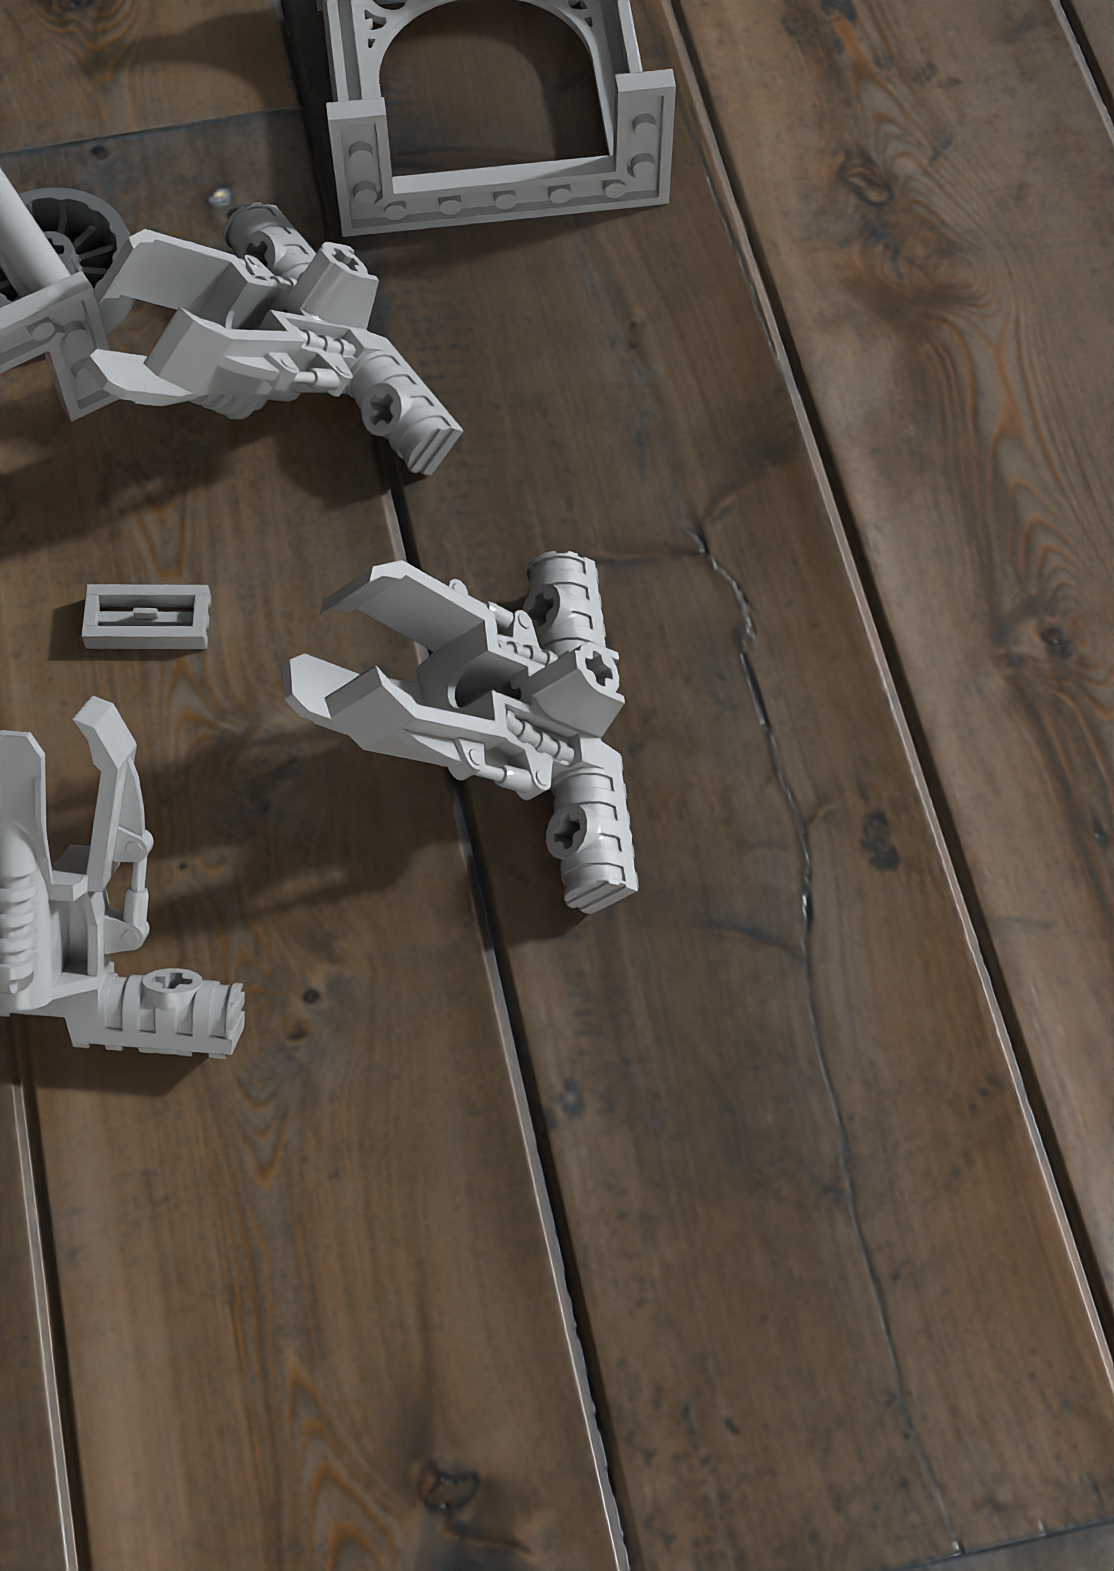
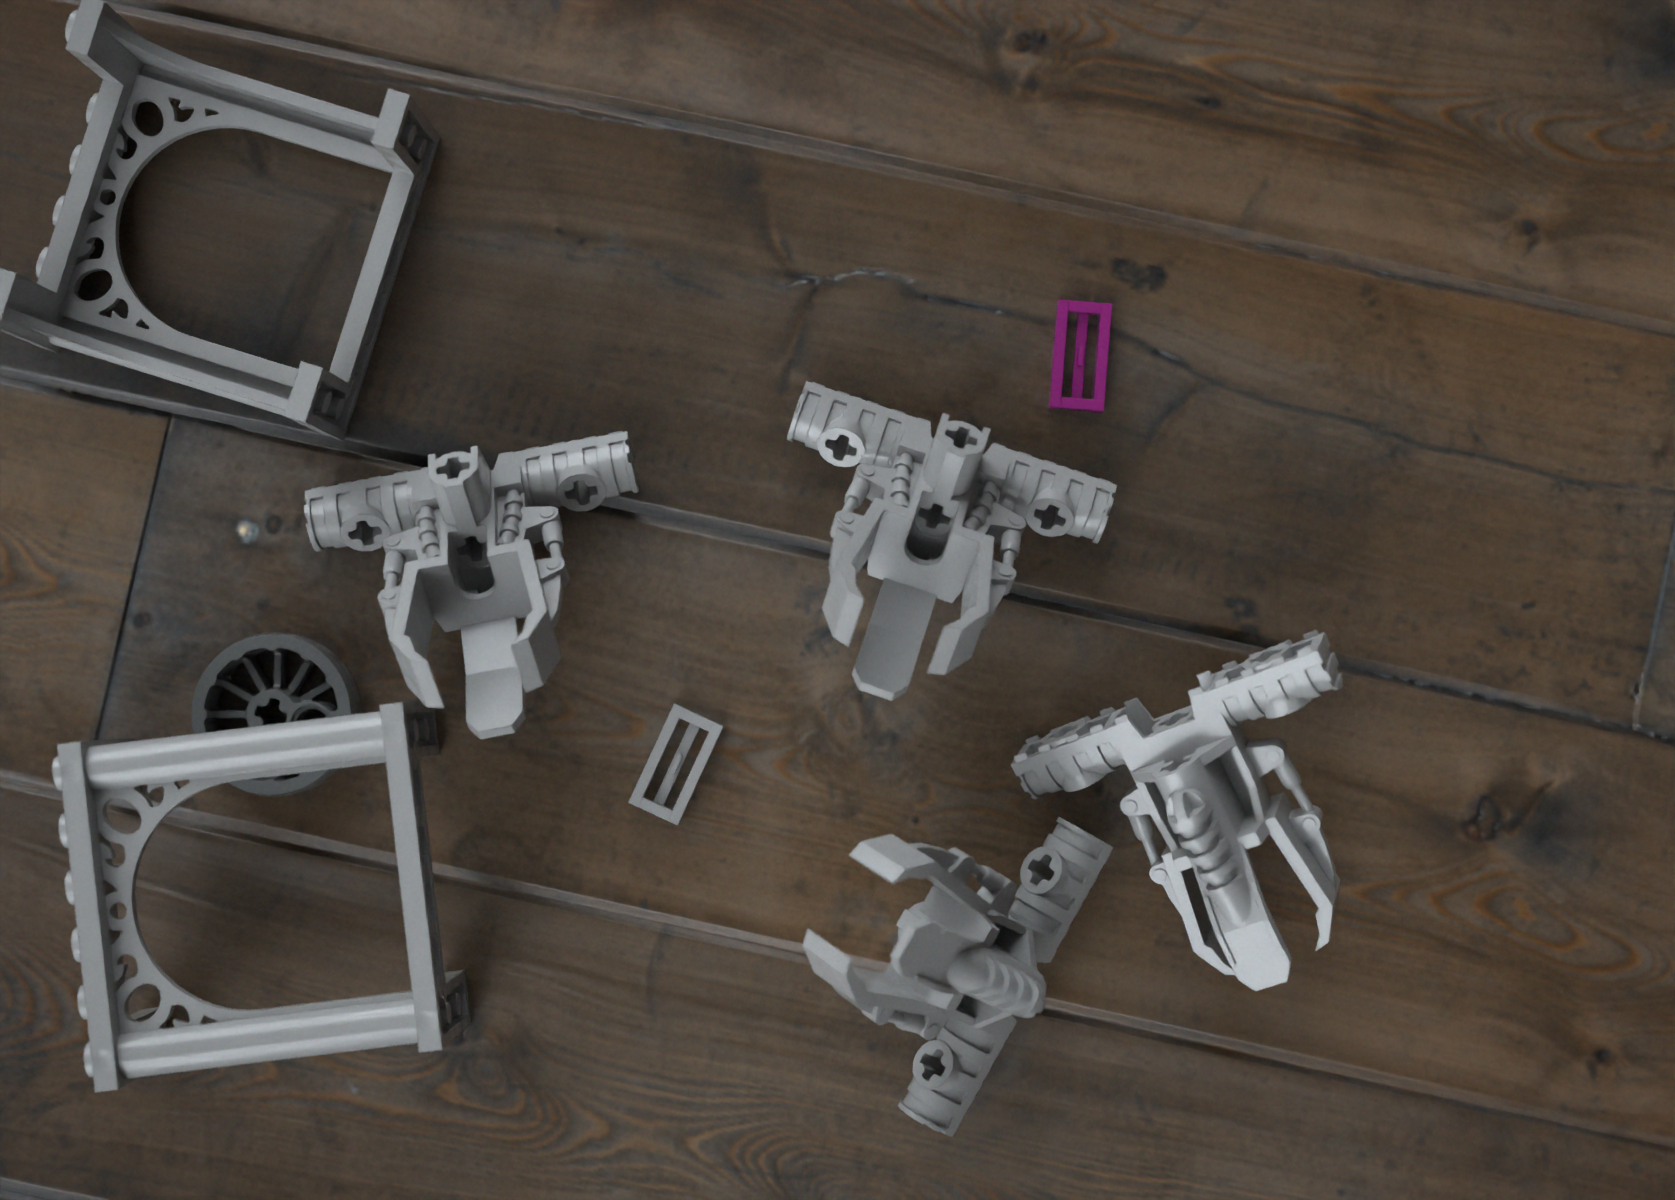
camera: 60 degrees left, 25 degrees up
(335, 1097) = (1212, 799): none -> light grey piece
(767, 836) = (1075, 401): none -> magenta tile

